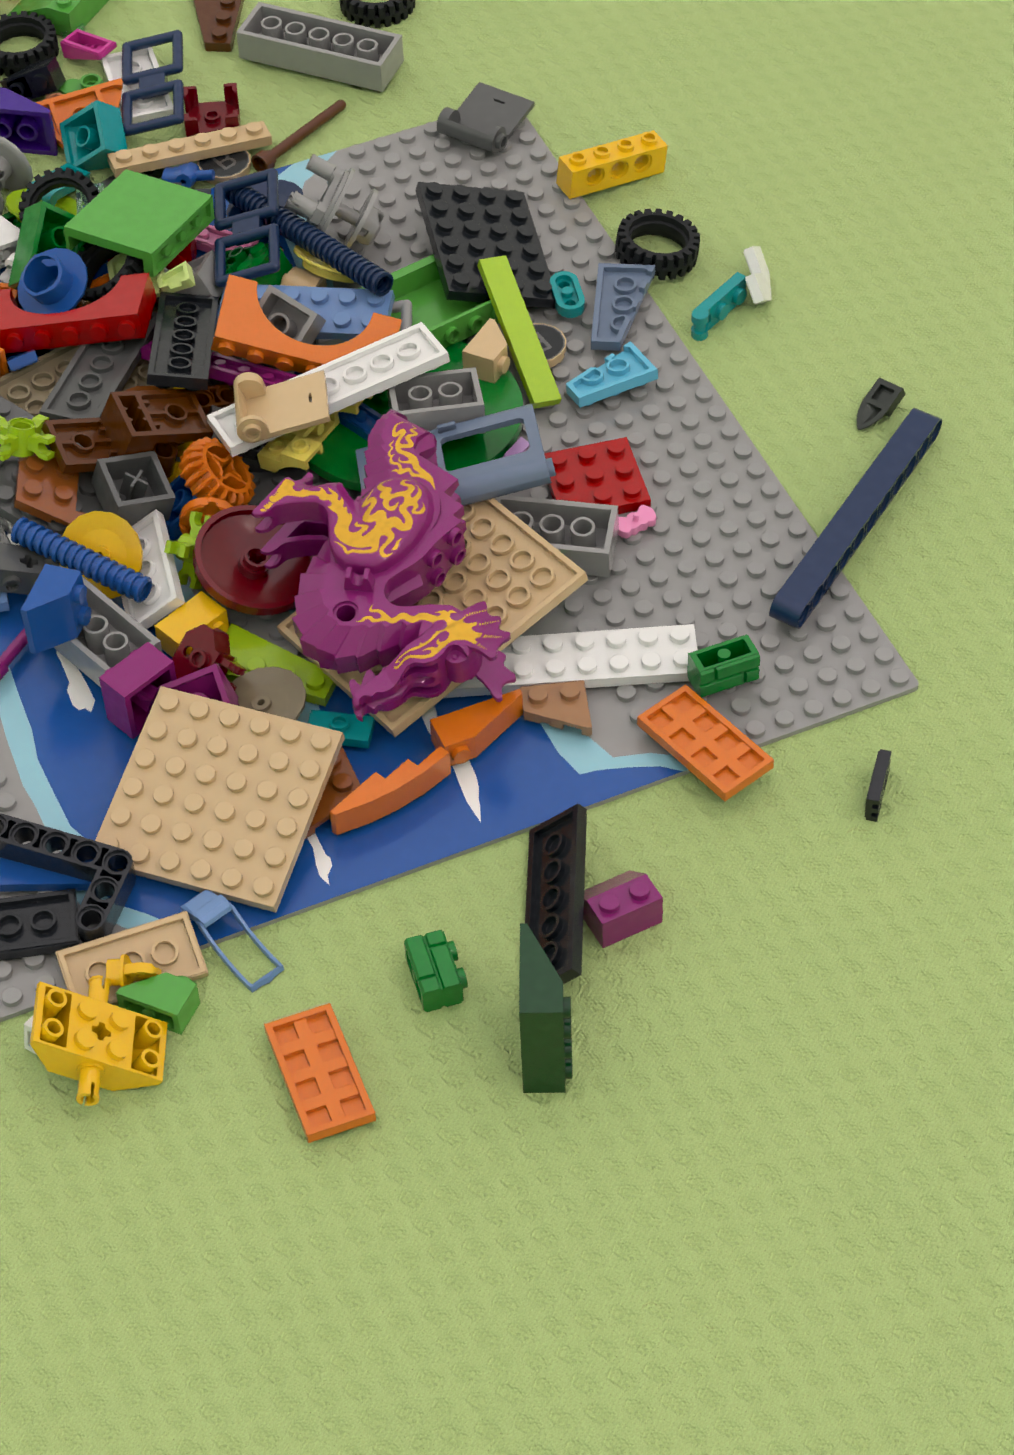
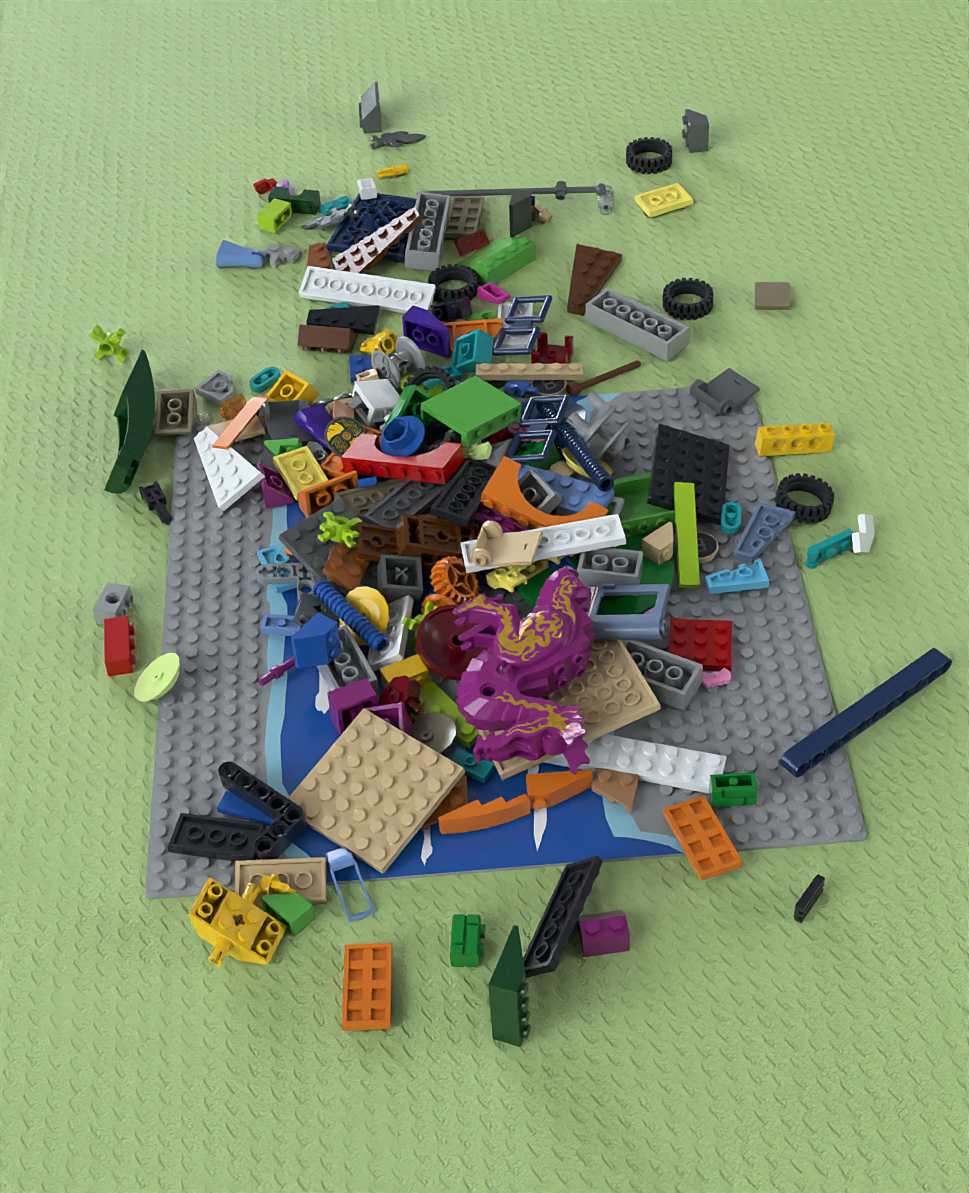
camera: 20 degrees right, 5 degrees down
(879, 401) = (915, 637): pearl dark grey plate -> none

